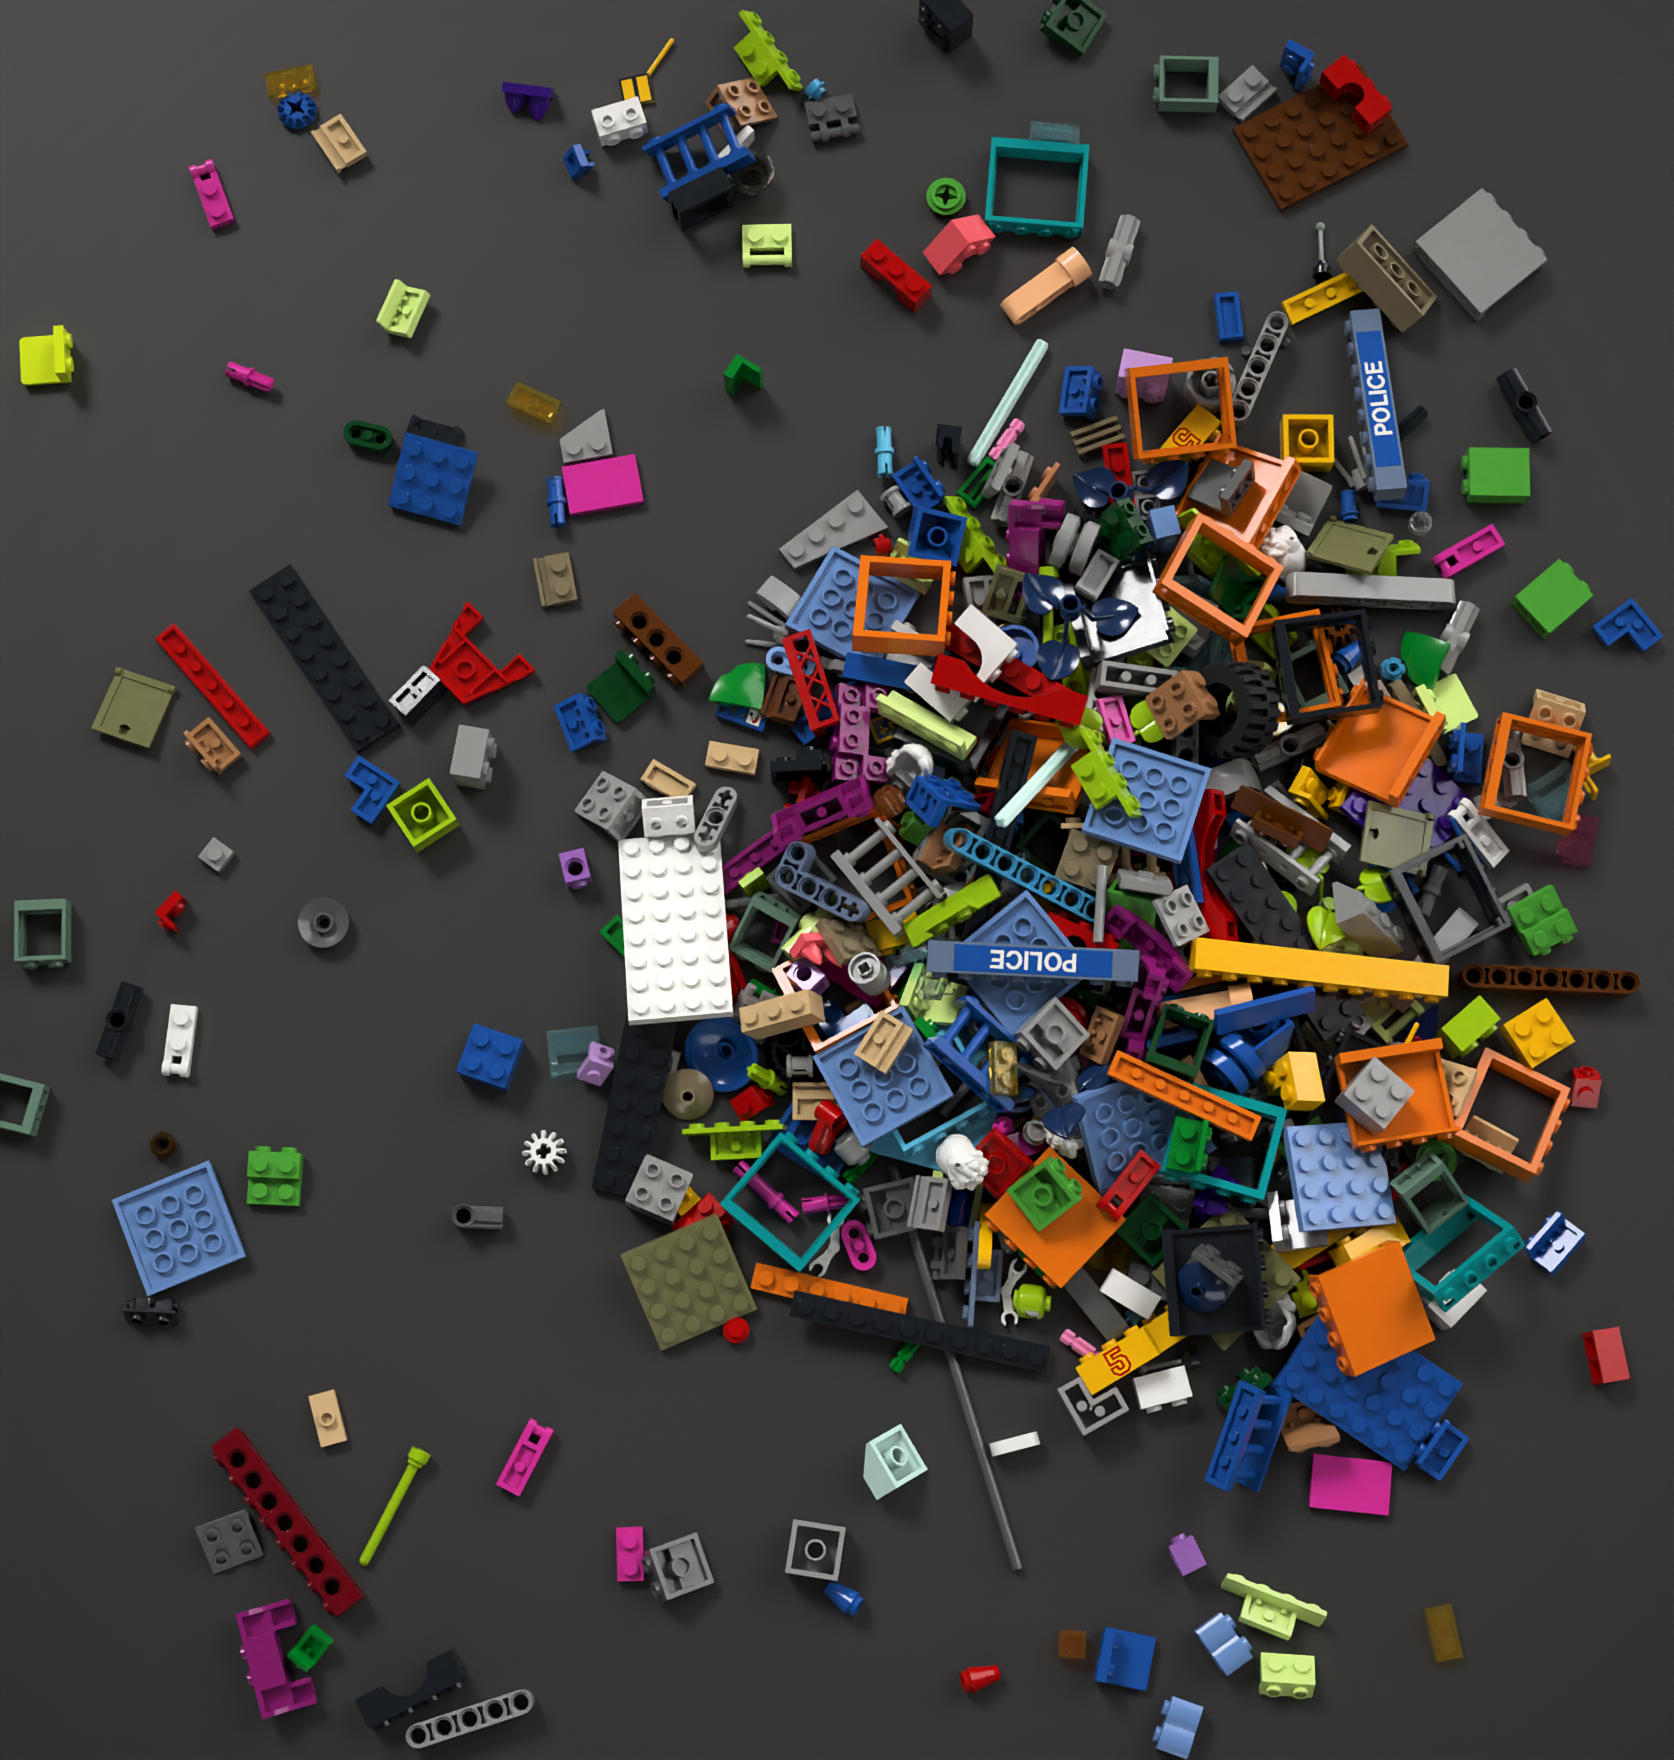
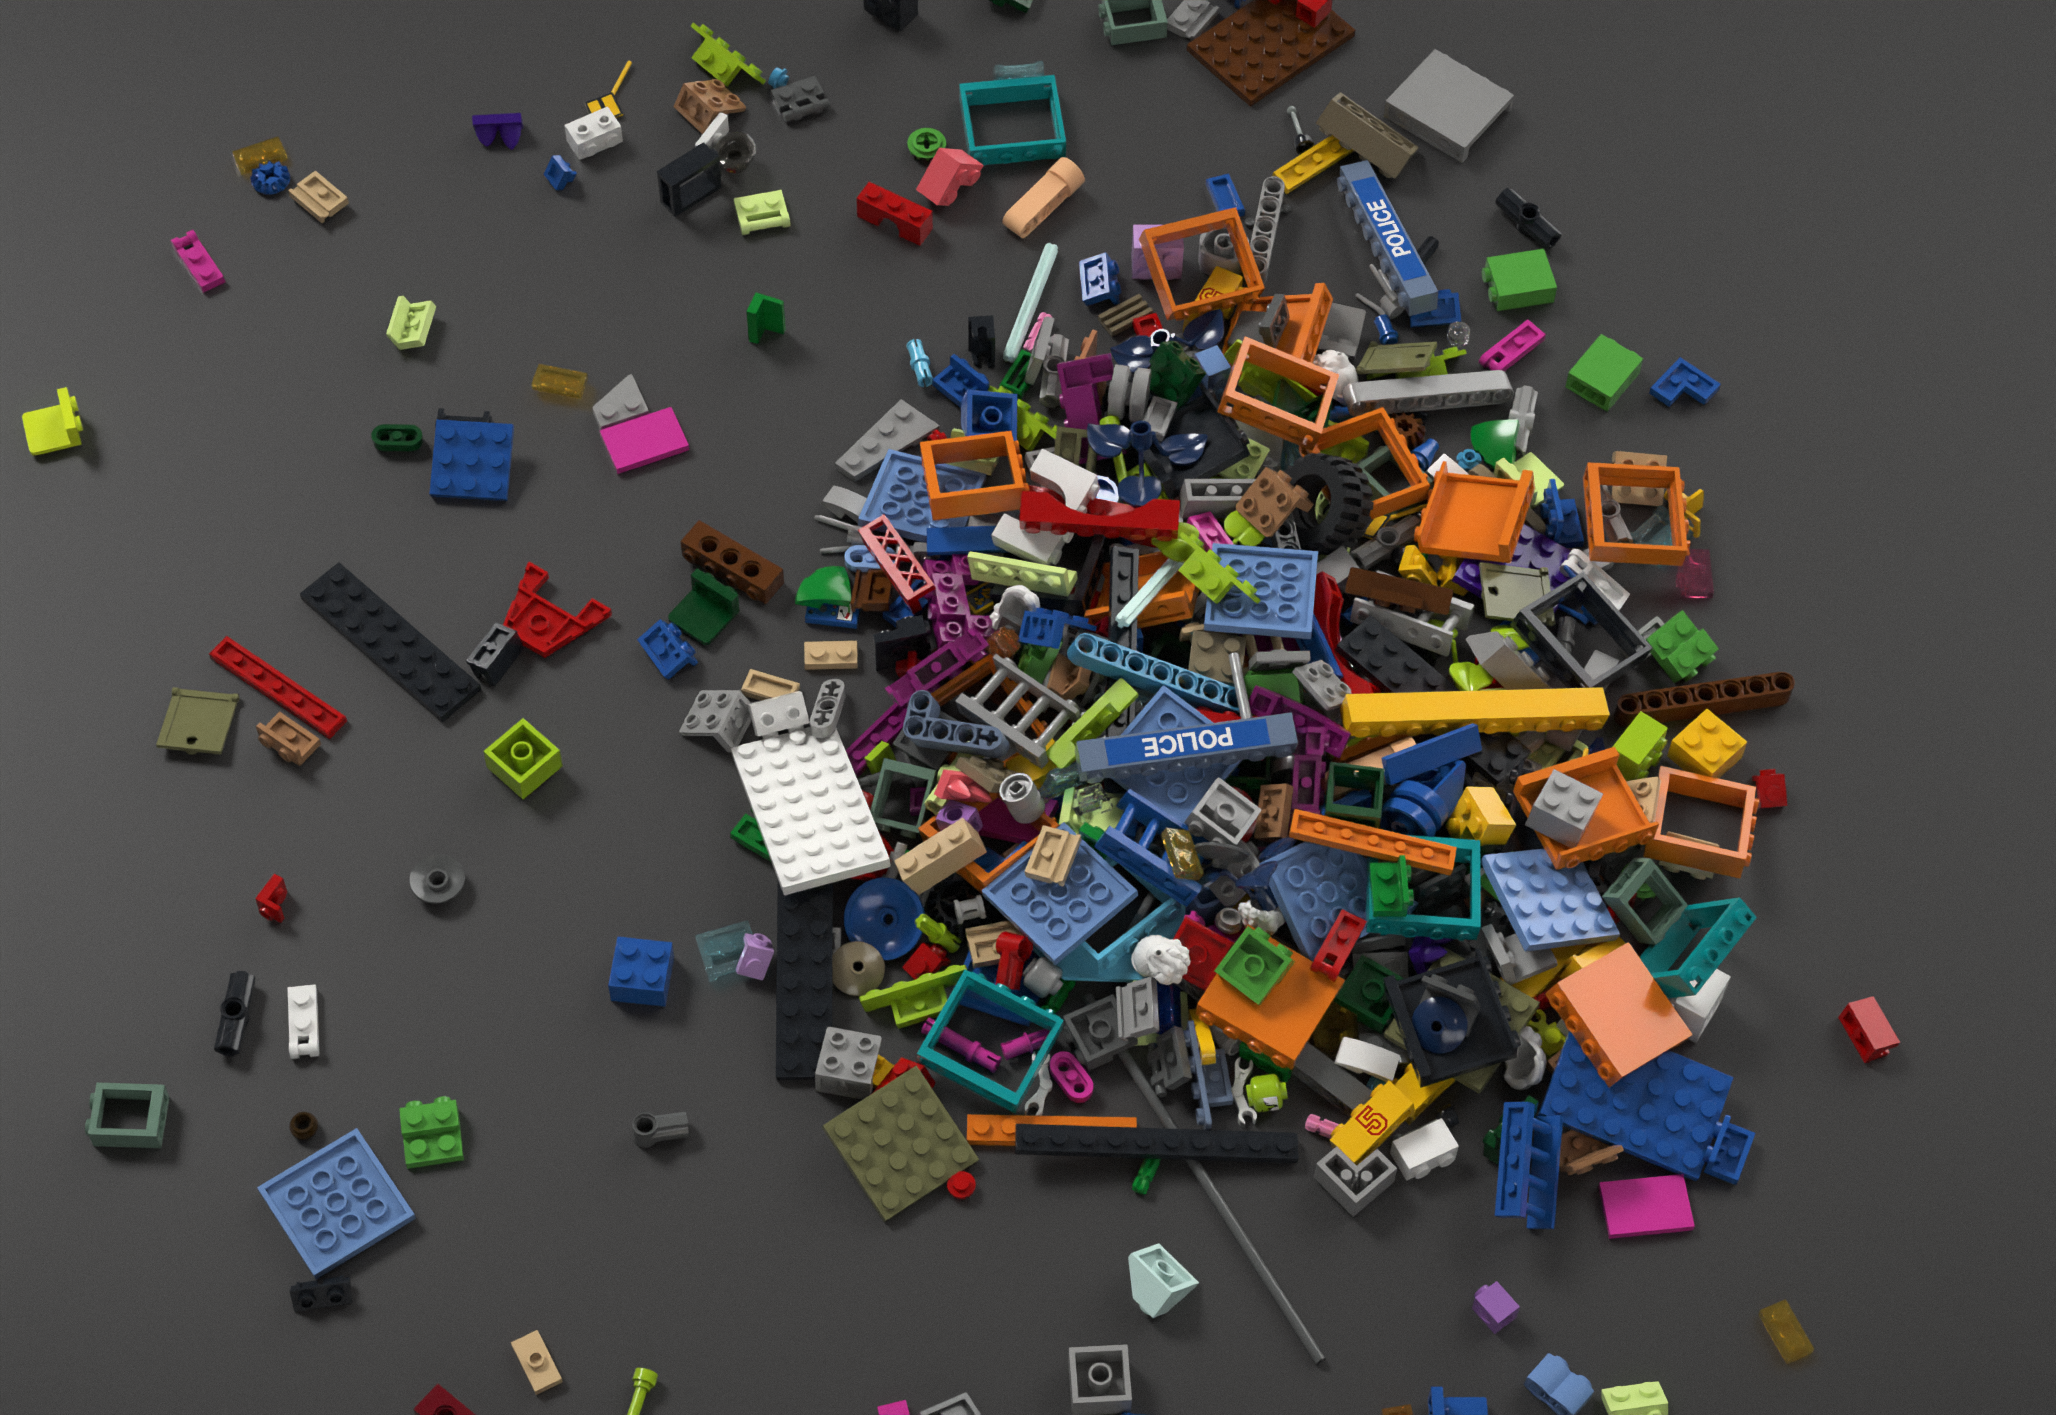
camera: 15 degrees left, 20 degrees down
(37, 907) = (131, 921): sand green window -> none
(216, 855) = (310, 840): light grey plate -> none
(250, 377) = (265, 407): dark pink axle -> none
(377, 788) = (467, 748): blue plate -> none
(472, 757) = (565, 695): light grey brick -> none
(524, 1458) = (761, 1357): dark pink plate -> none
(550, 1158) = (720, 1061): white gear -> none
(555, 580) = (614, 530): dark tan plate -> none
(556, 502) = (600, 461): blue pin -> none
(571, 858) = (692, 771): medium lavender brick -> none
(736, 160) = (716, 138): blue fence -> none
(895, 501) = (941, 402): light grey bush -> none
(1014, 1444) = (1284, 1235): white beam -> none
(1119, 252) = (1105, 160): light grey piece -> none
(1269, 1609) = (1599, 1340): yellowish green bracket -> none
(1308, 440) = (1336, 272): yellow brick -> none
(1366, 648) = (1417, 404): black window -> none
(1554, 1243) = (1783, 934): bracket -> none

